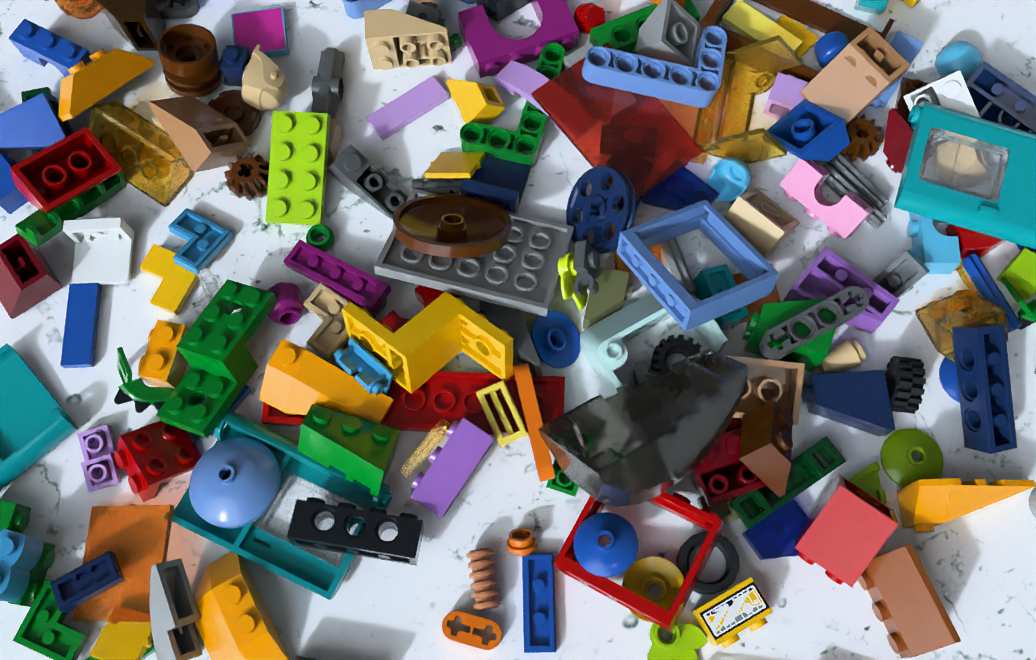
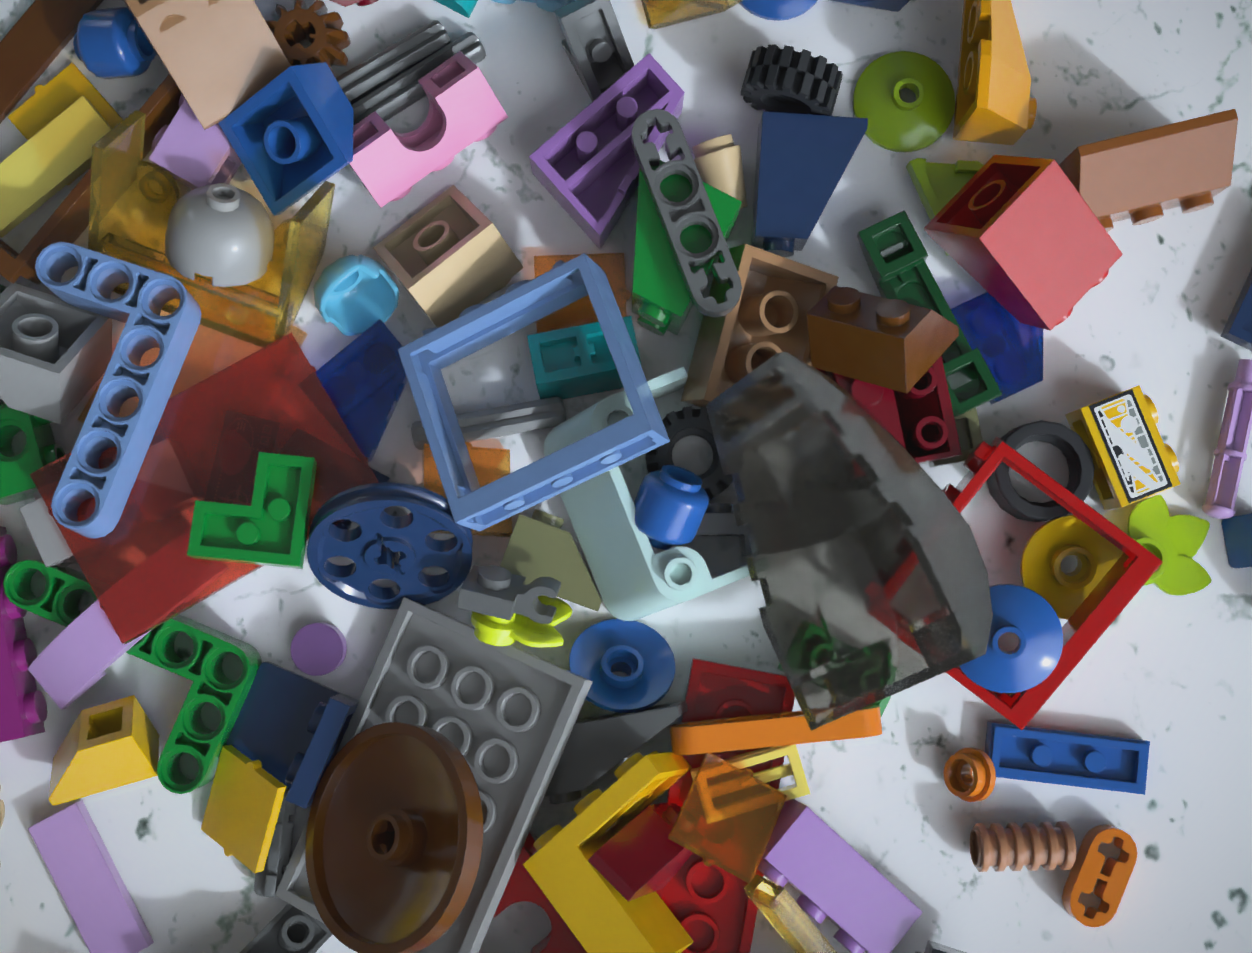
camera: 90 degrees left, 15 degrees up
(458, 357) = (640, 854): none -> dark red slope
(482, 396) = (728, 817): none -> clear orange piece
(540, 192) = (318, 648): none -> medium lavender tile
(602, 149) = (271, 528): none -> green plate
(648, 345) = (670, 506): none -> blue head
(746, 107) = (220, 235): none -> light grey cylinder

